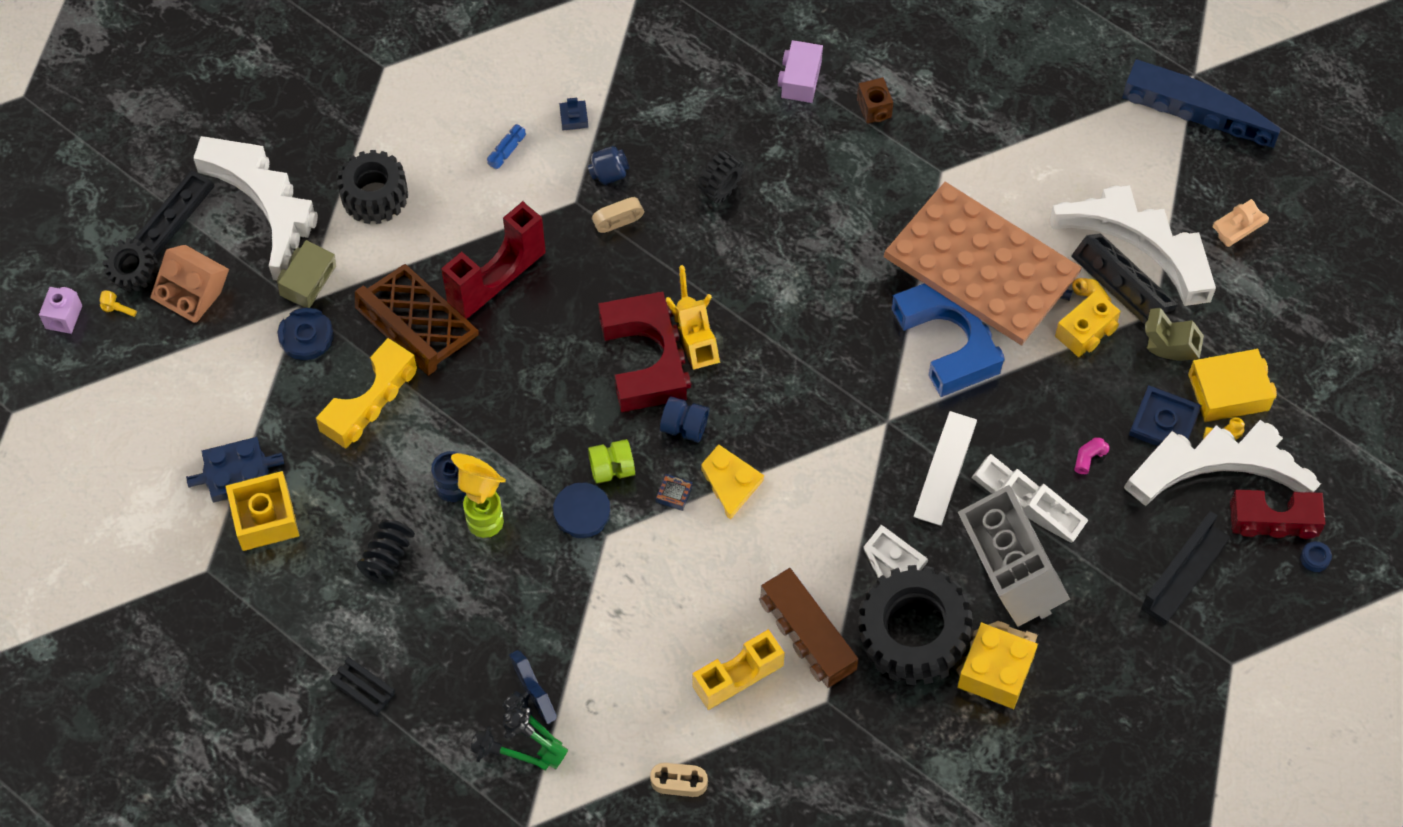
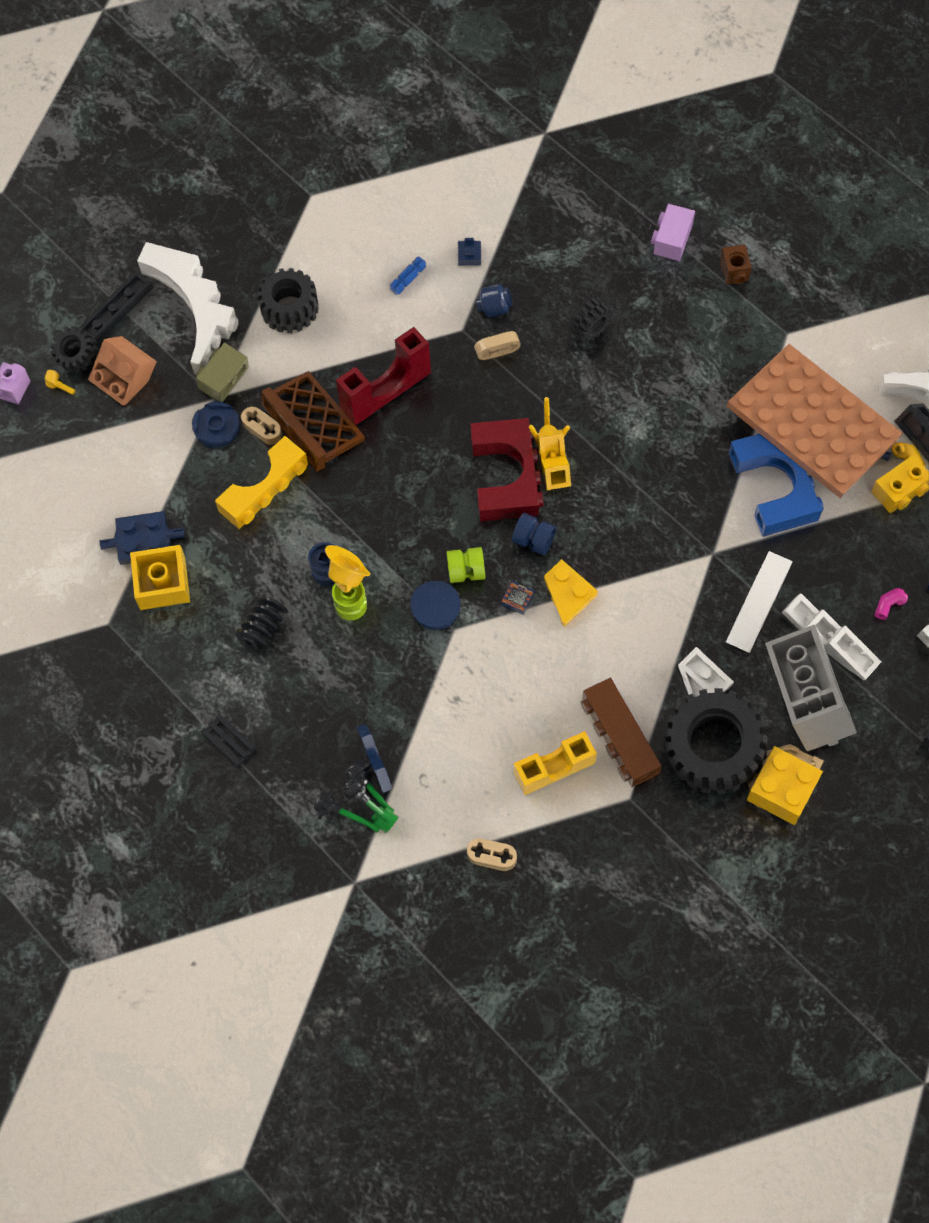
camera: 10 degrees right, 5 degrees up
(356, 333) = (264, 422): none -> tan beam

